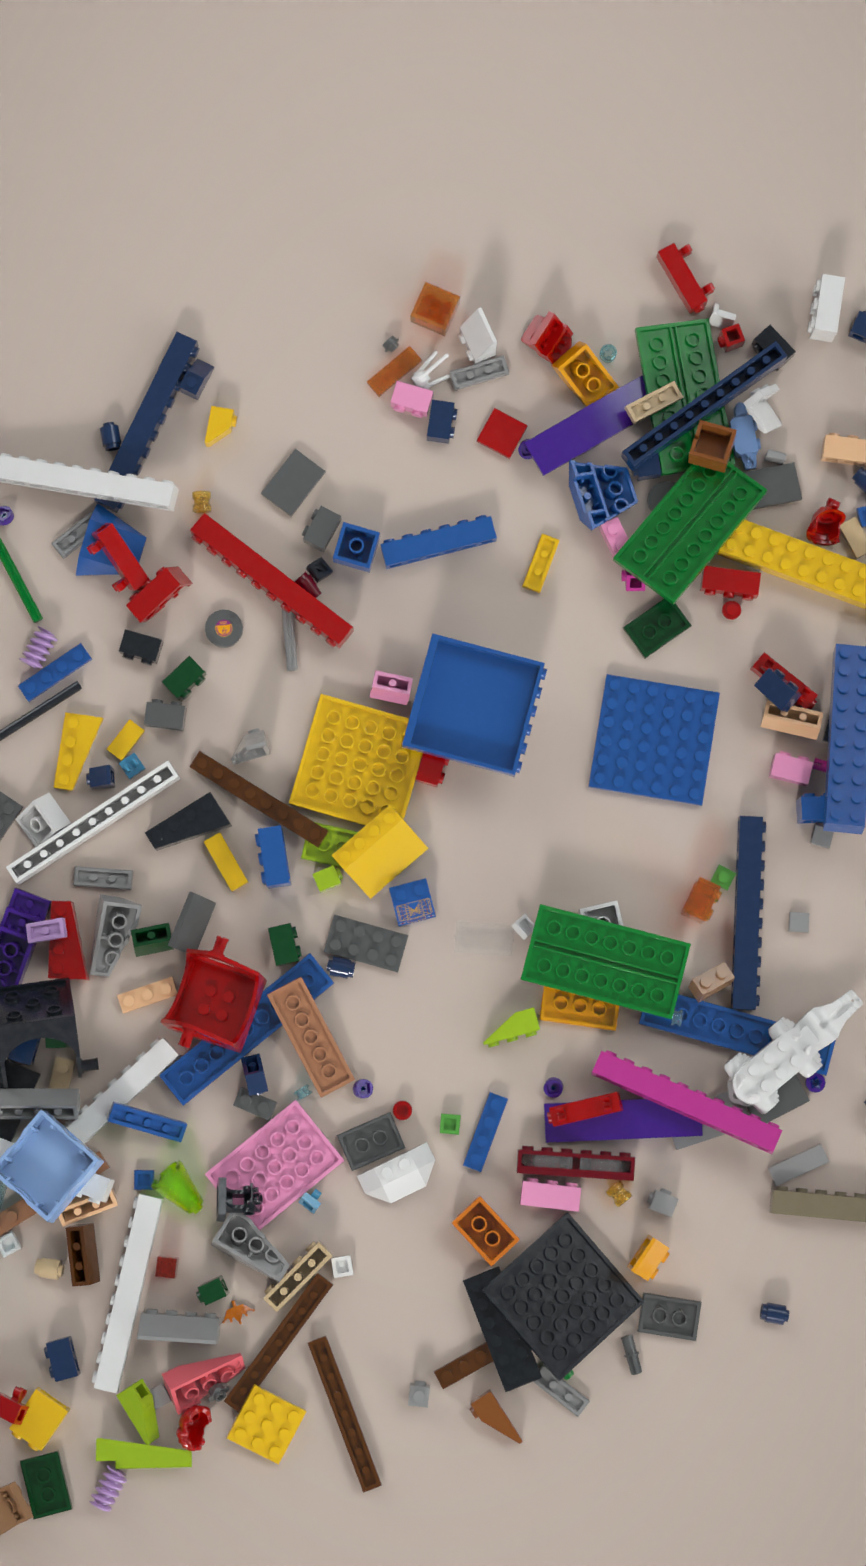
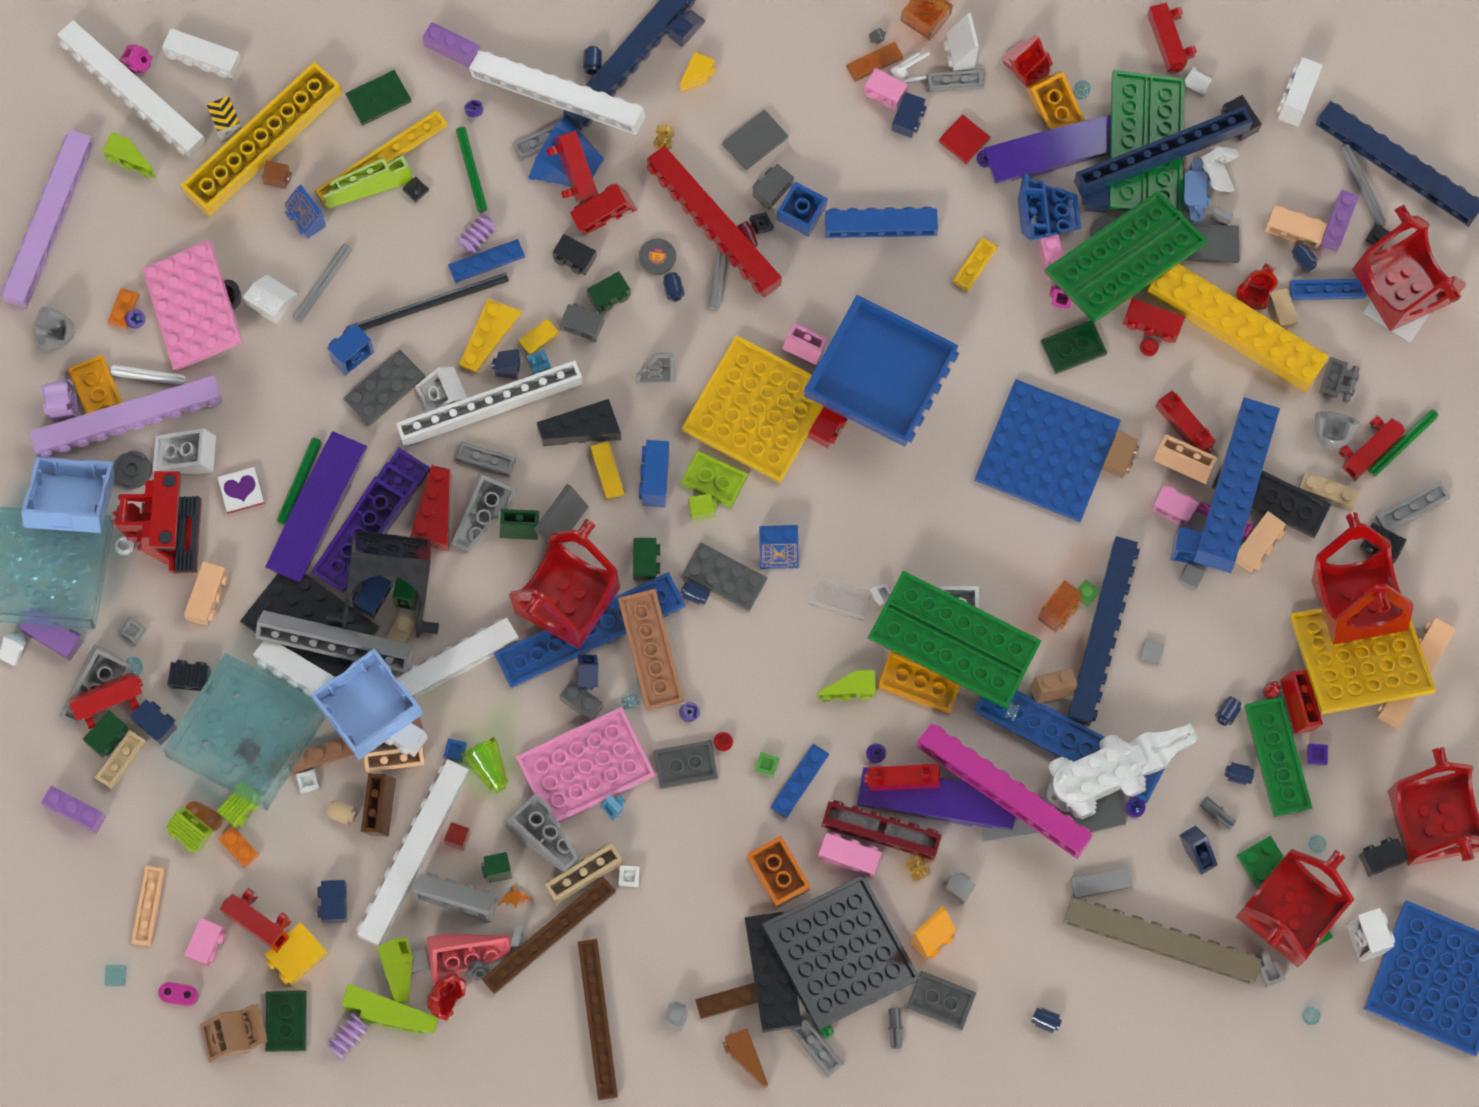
camera: 10 degrees right, 10 degrees down
(46, 930) = (420, 489): lavender plate -> none
(147, 995) = (501, 577): light nougat plate -> none
(147, 1121) = (472, 692): blue plate -> none
(225, 1196) = (531, 778): black tile -> none
(247, 657) = (673, 287): none -> dark blue brick
(248, 1351) = (517, 937): none -> light grey tile
(259, 799) = (653, 419): reddish brown plate -> none
(266, 1424) = (517, 1011): yellow plate -> none
(380, 851) = (758, 490): yellow slope -> none
(399, 1175) = (705, 801): white wedge -> none
(653, 402) = (1115, 139): tan plate -> none
(712, 446) = (1164, 188): dark orange piece -> none
(727, 728) = (1120, 454): none -> medium nougat brick
(731, 338) = (1202, 99): red brick -> none
(777, 689) = (1177, 424): dark blue brick -> none

